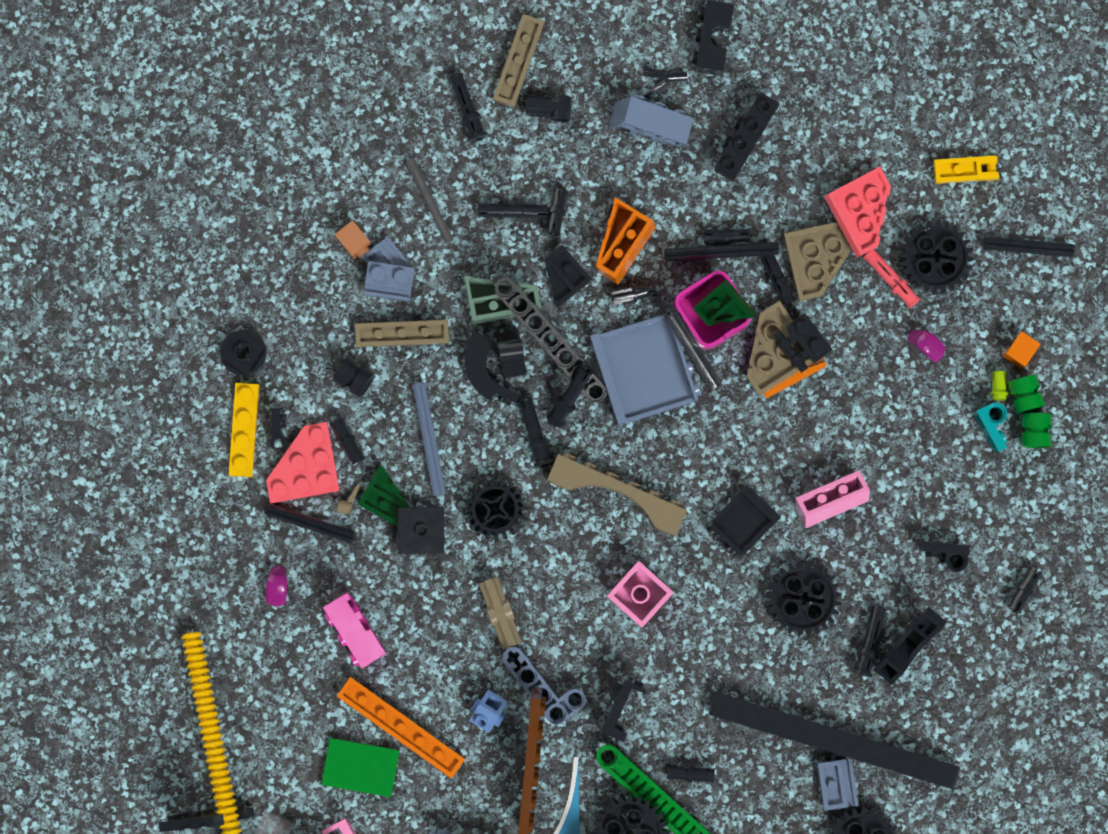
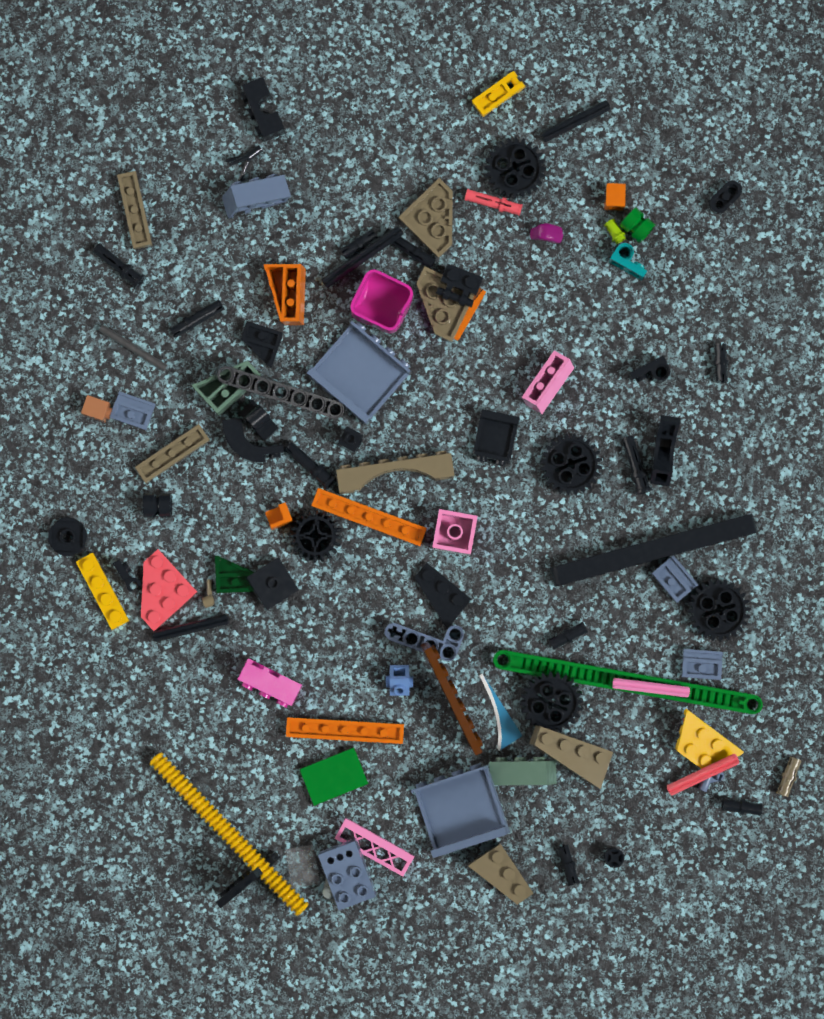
camera: 30 degrees left, 0 degrees up
(276, 586) = (195, 687): magenta hair -> none
(347, 441) = (180, 553): black pin -> none
(389, 281) = (140, 422): sand blue plate -> none
(429, 439) = (238, 516): sand blue axle -> none
(470, 465) = (279, 516): none -> orange panel
(500, 613) = (364, 607): dark tan piece -> none
(555, 107) = (181, 227): black piece -> none
(556, 211) = (228, 300): black pin -> none
(562, 523) = (369, 517): none -> orange plate
(566, 404) = (319, 430): black pin -> none
(587, 650) = (443, 595): none -> black wing
(592, 433) = (351, 440): none -> black brick
(617, 707) = (491, 638): black panel -> none
(633, 293) = (318, 324): black axle -> none
(692, 349) = (385, 338): black axle -> none
(723, 305) = (387, 293): dark green wing -> none
(747, 135) = (329, 165): black bracket -> none
(861, 209) = (442, 166): coral plate -> none
(1036, 430) = (660, 247): green wheel -> none

